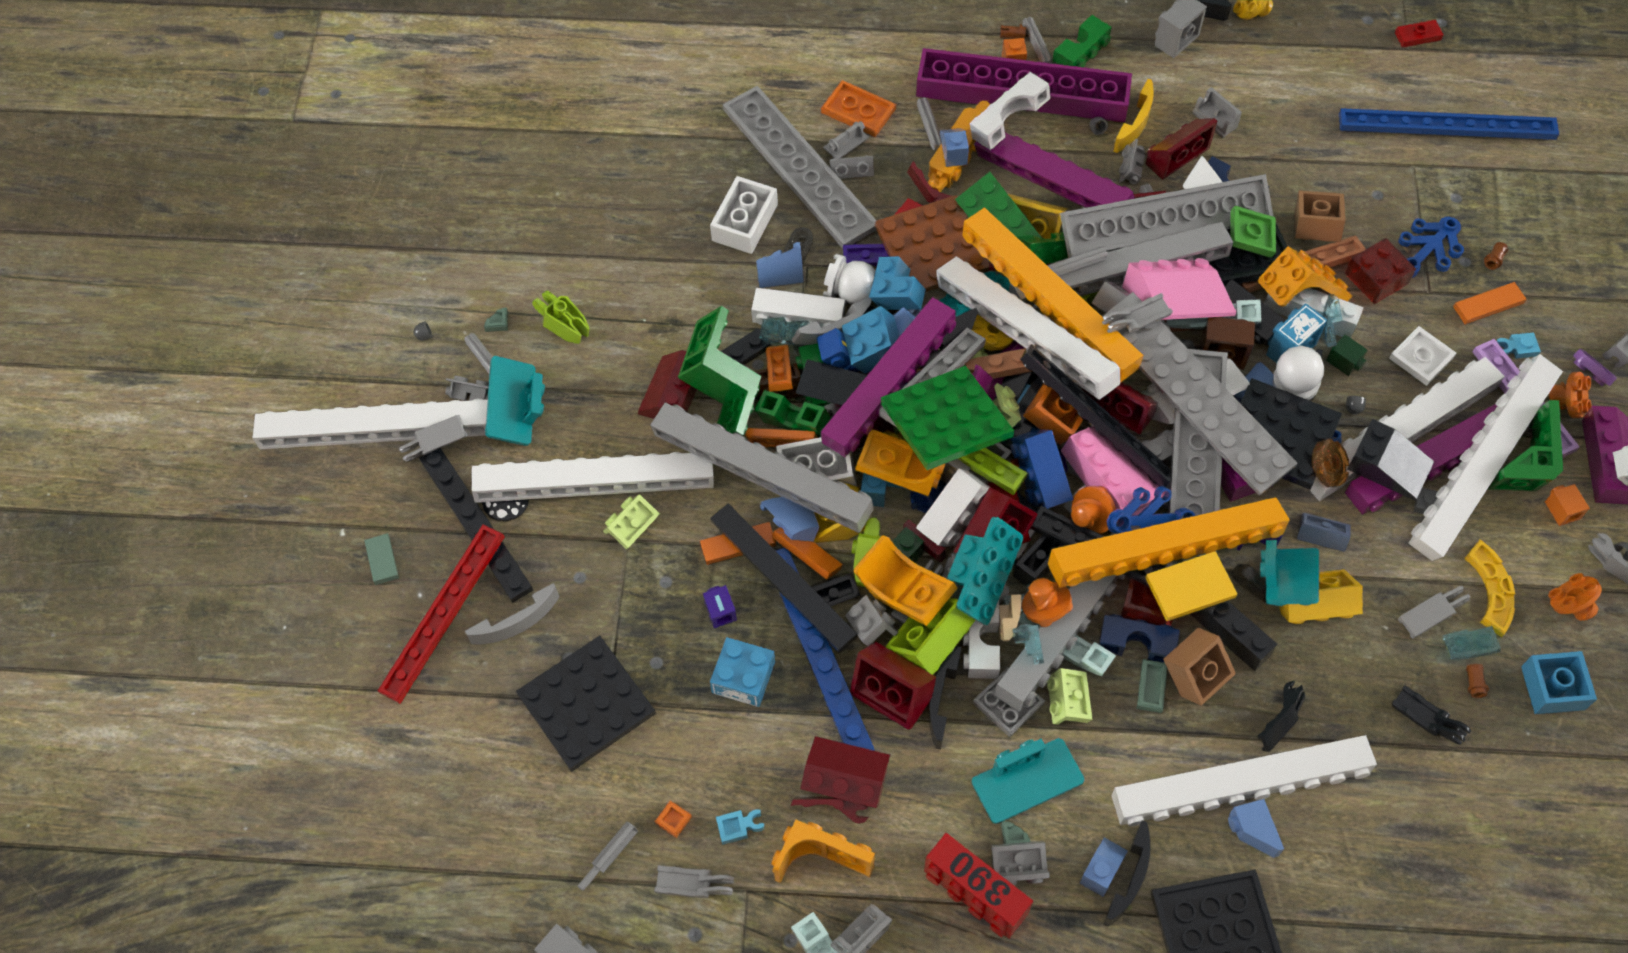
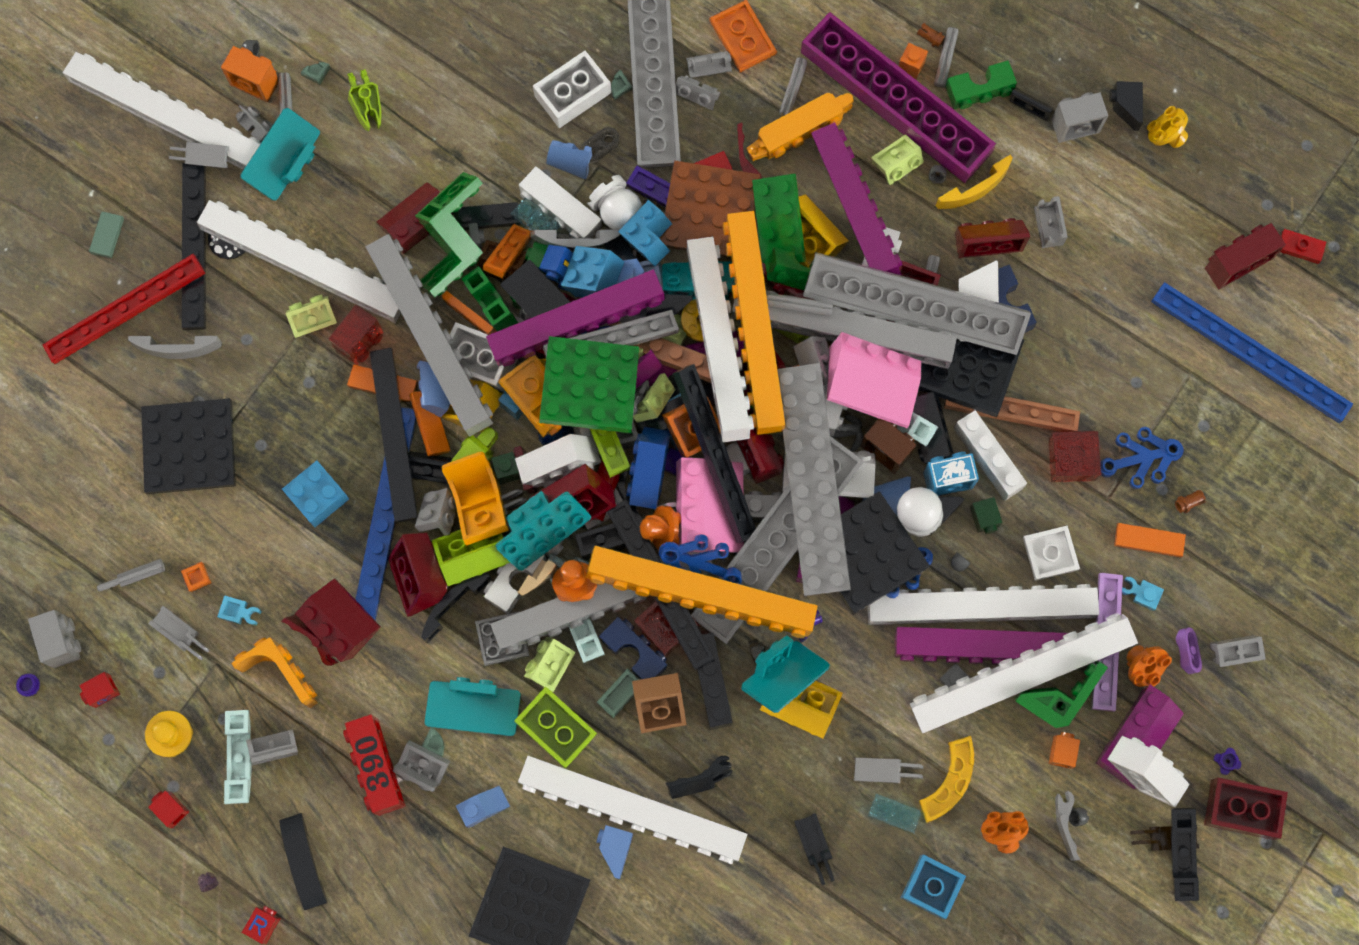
camera: 30 degrees right, 15 degrees up
(439, 347) = (250, 73): none -> orange brick
(689, 510) = (356, 335): none -> clear red brick
(719, 606) = (333, 428): dark purple brick -> none
(783, 195) = (620, 85): none -> sand green tile
(954, 147) = (788, 126): medium blue slope -> none
(1026, 94) = (880, 113): white arch -> none
(1031, 637) = (537, 610): clear light blue bracket -> none
(1058, 130) = (898, 159): none -> yellowish green bracket
(1121, 747) = (555, 727): none -> lime brick
(1131, 40) = (1031, 104): none -> black slope
(1132, 161) = (945, 221): light grey hinge -> none
(1139, 315) = (807, 387): light grey arm -> none
(1141, 847) = (472, 843): black slope -> none
(1191, 586) = (692, 637): yellow tile -> none
(1253, 231) = (982, 359): bright green plate -> none
(1296, 272) = (996, 423): light orange bracket -> none
(1319, 216) = (1059, 376): medium nougat brick -> none
(1323, 454) = (877, 595): clear orange tile -> none
(1324, 532) = (850, 652): sand blue slope -> none
(1333, 314) = (987, 479): clear light blue slope -> none
(1387, 55) = (1244, 255): none -> dark red brick
(1391, 460) = (940, 631): slope -> none
(1477, 683) = (874, 845): dark orange pin -> none

